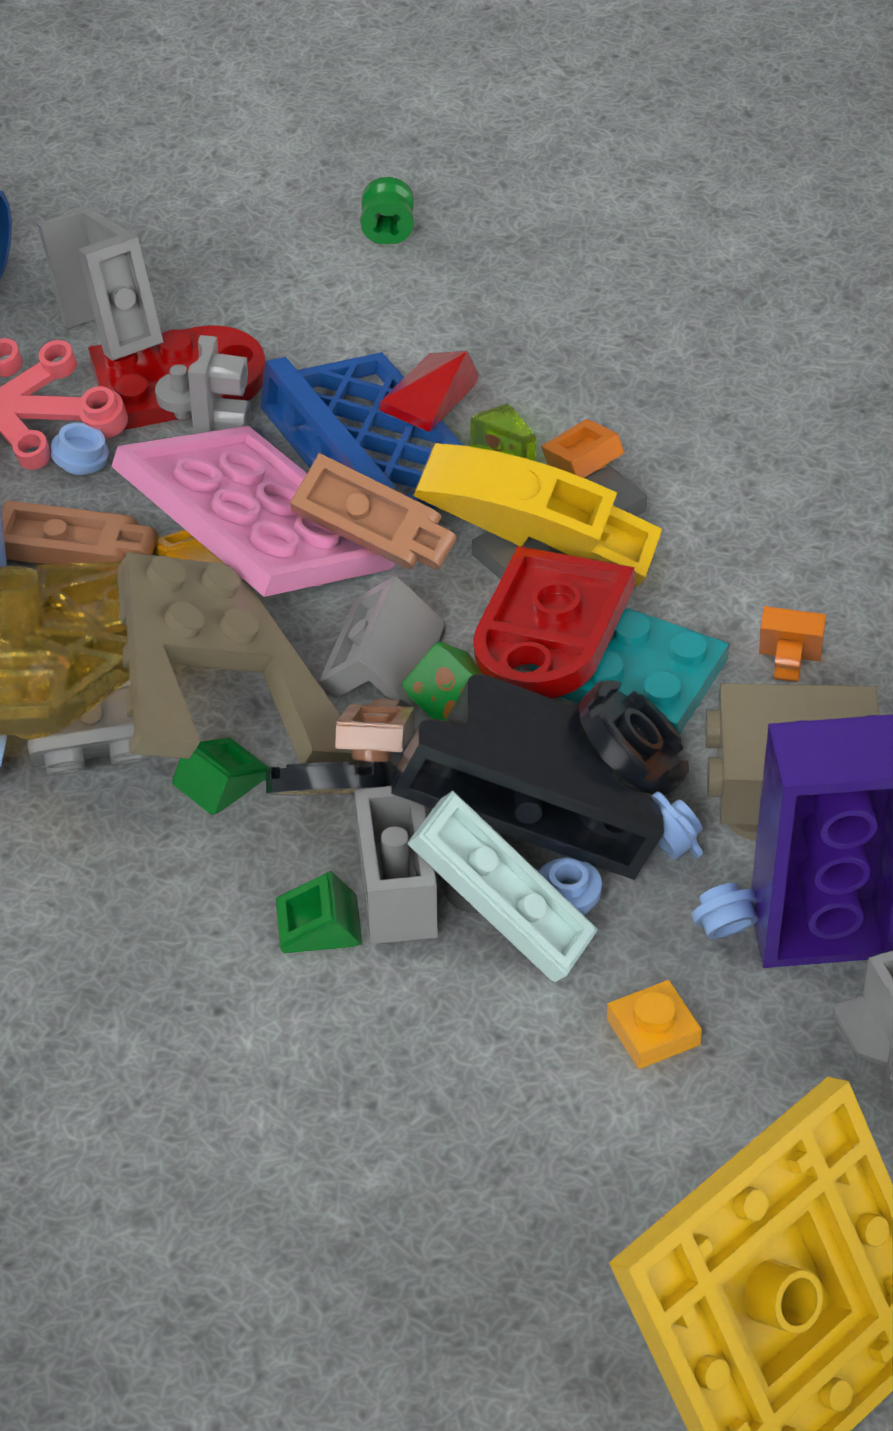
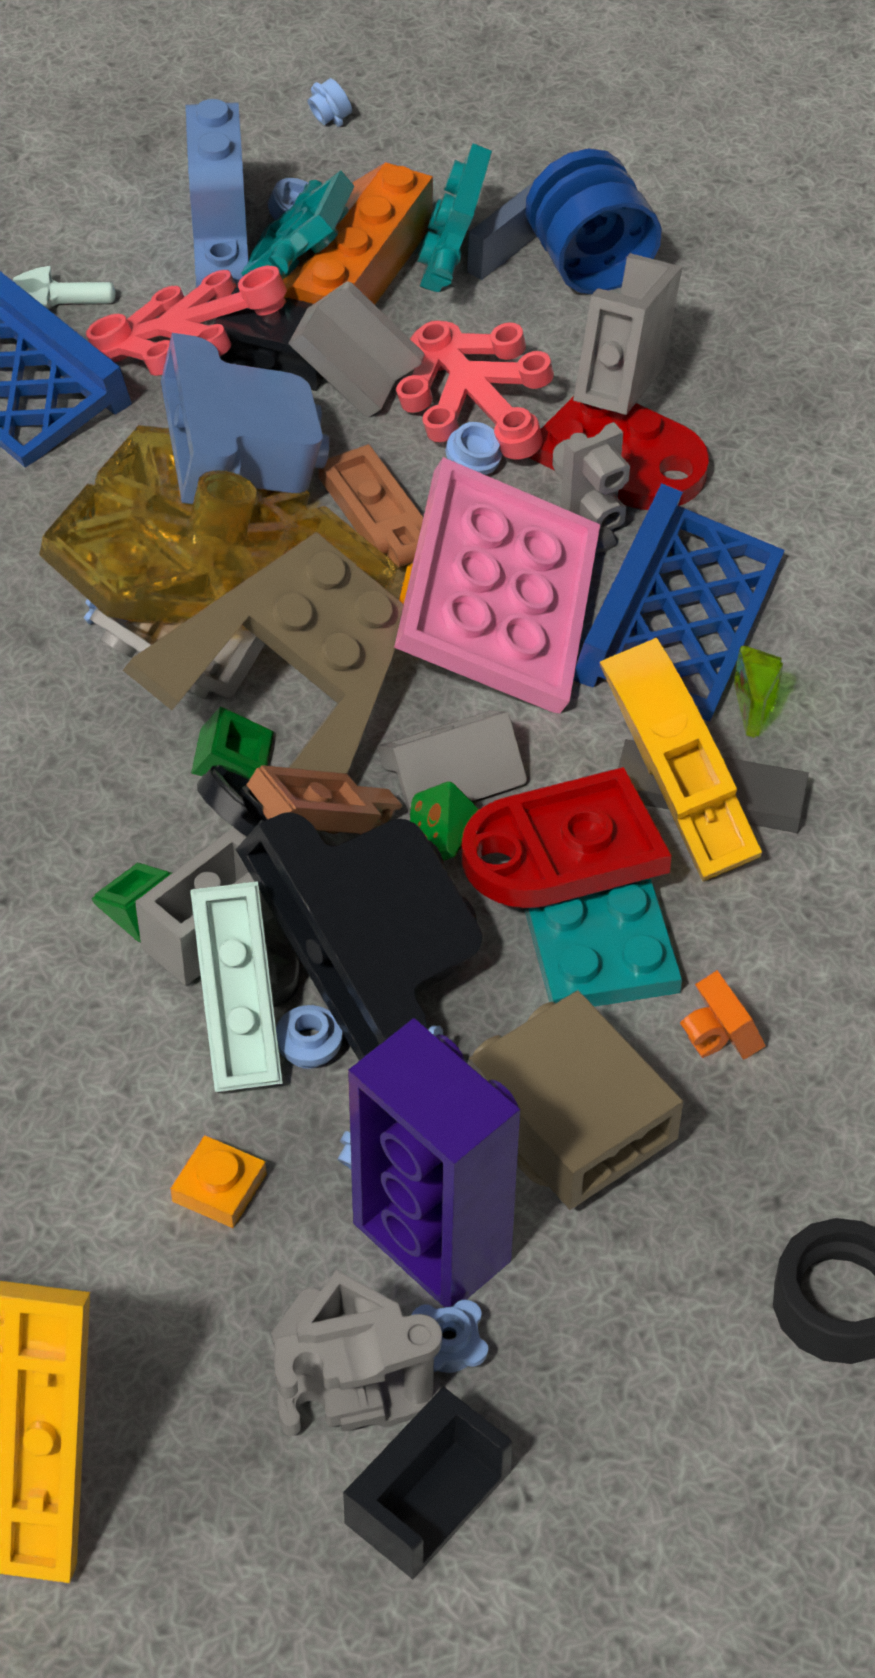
camera: 50 degrees right, 5 degrees up
(372, 515) = (557, 655): nougat hinge -> none
(431, 389) = (767, 607): red slope -> none
(583, 449) = (804, 744): orange plate -> none
(633, 738) = (486, 974): black tile -> none

